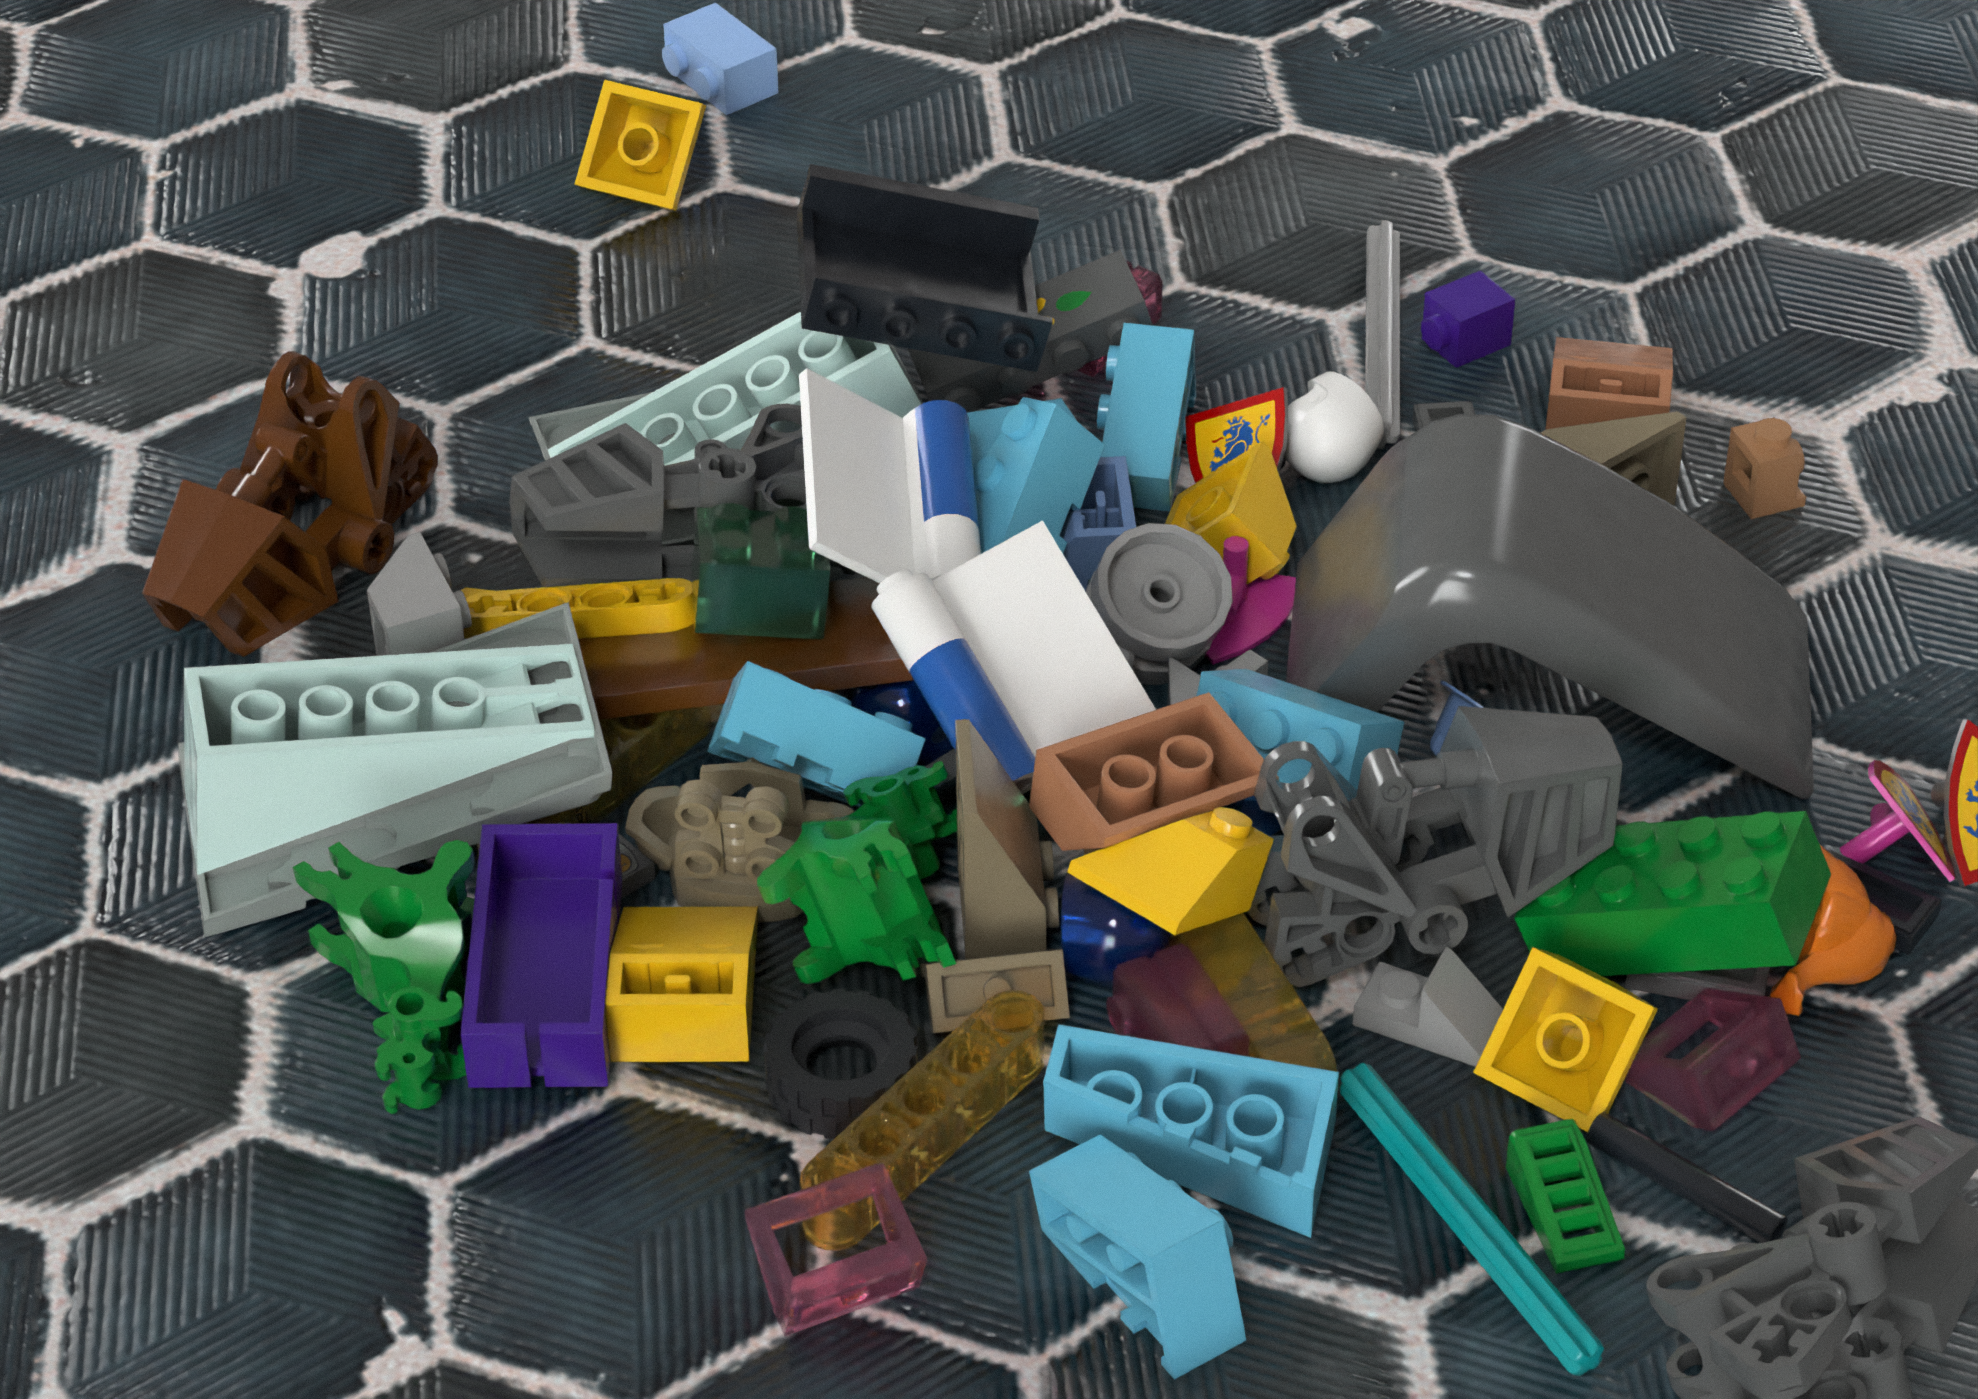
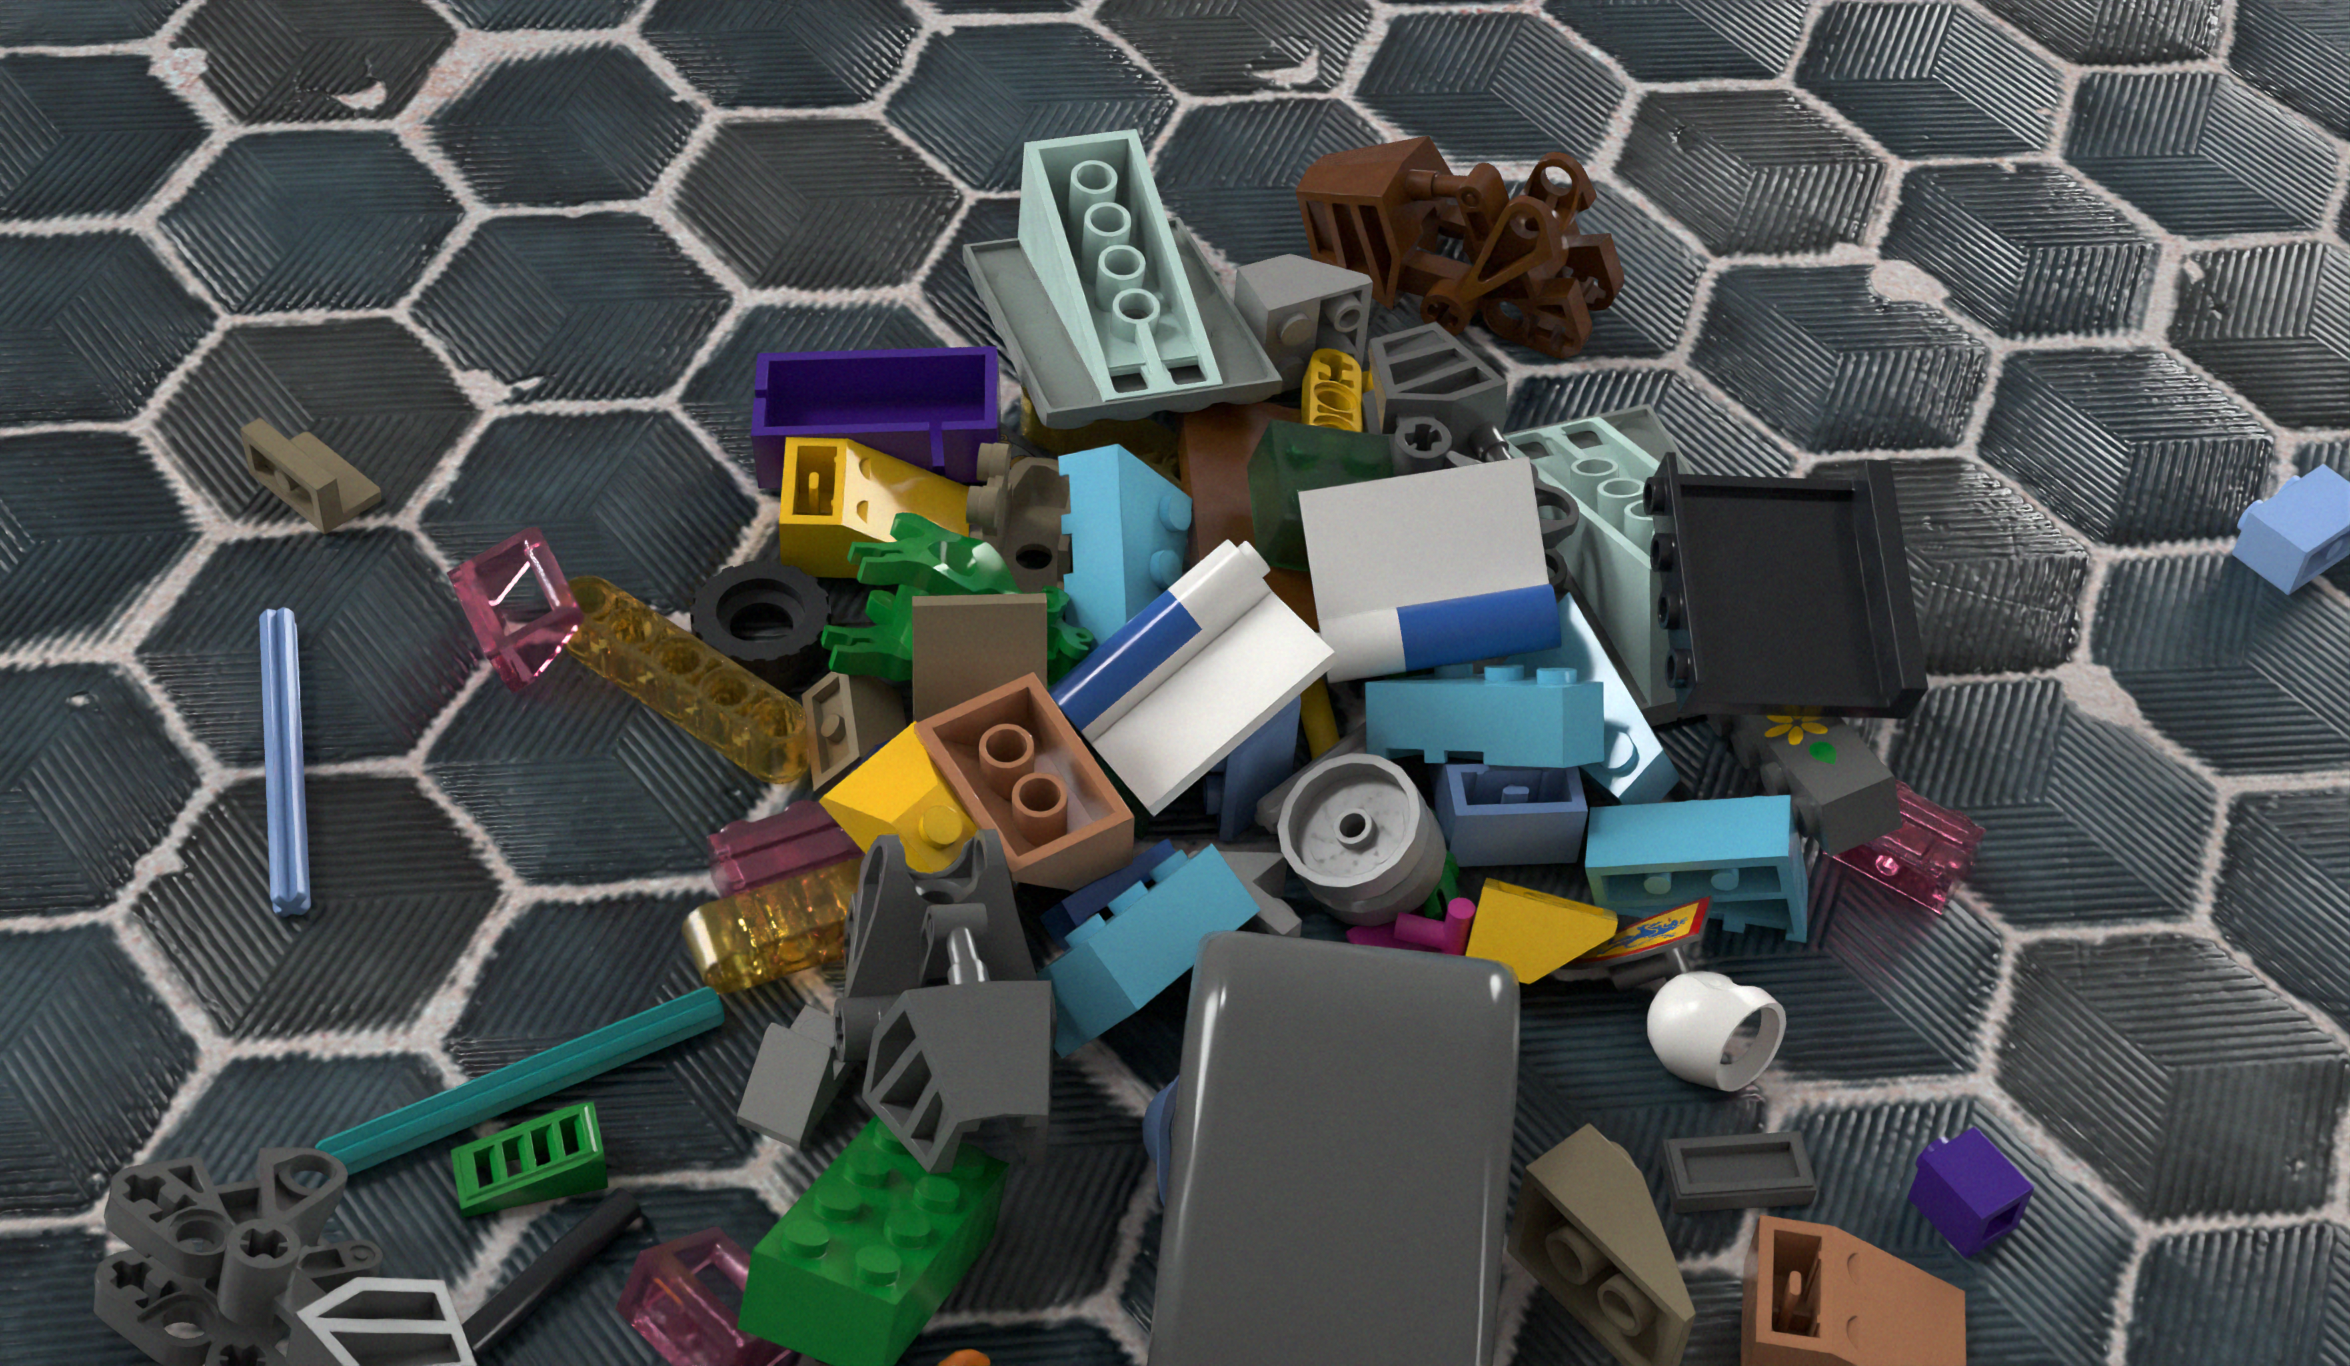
camera: 85 degrees right, 5 degrees up
(404, 958) = (874, 313): green animal -> none
(640, 145) = (2121, 463): yellow slope -> none
(1148, 1245) = (489, 811): medium azure wedge -> none
(1200, 1117) = (635, 873): medium azure wedge -> none
(1383, 326) = (1943, 1113): light grey axle -> none
(1565, 1038) = (741, 1166): yellow slope -> none

